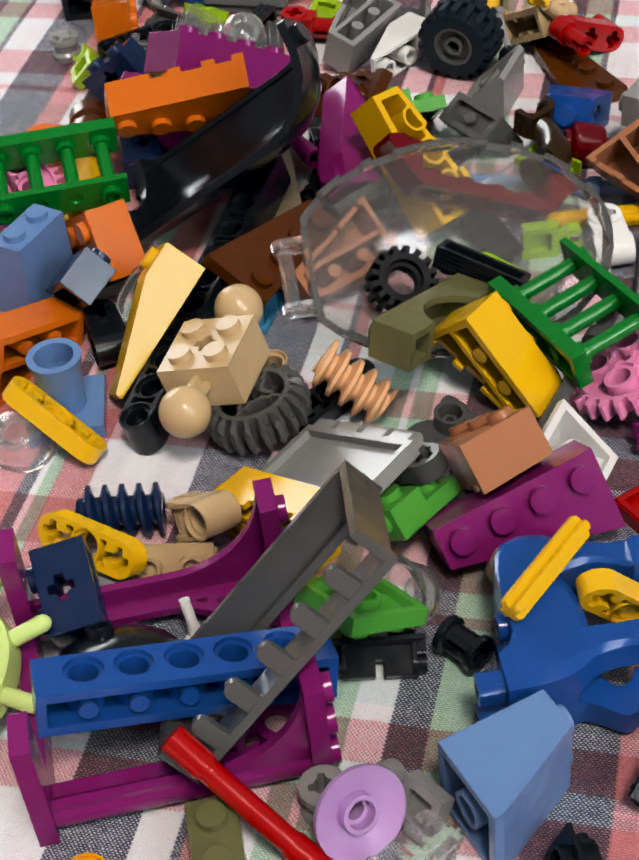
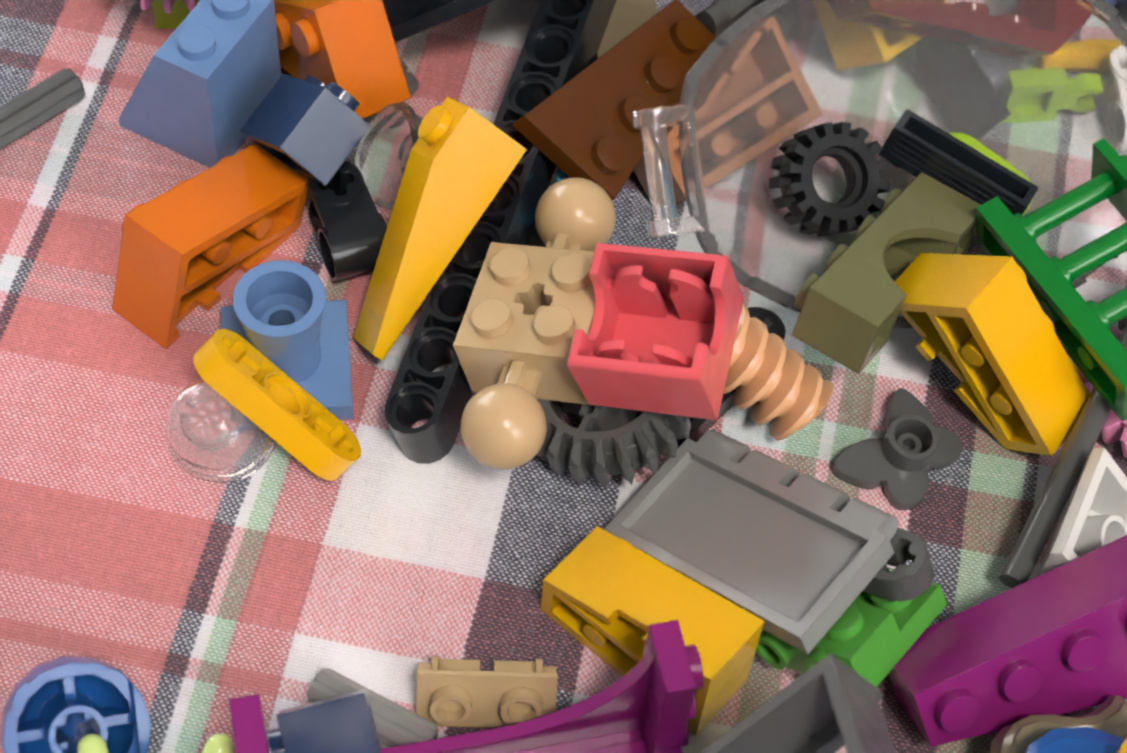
camera: 10 degrees left, 15 degrees up
(107, 538) = (317, 640): yellow beam -> none
(126, 509) = (399, 589): dark blue piece -> none
(204, 514) = (536, 617): tan piece -> none
(278, 348) = (658, 331): none -> coral piece
(494, 448) = (1003, 548): nougat wedge -> none

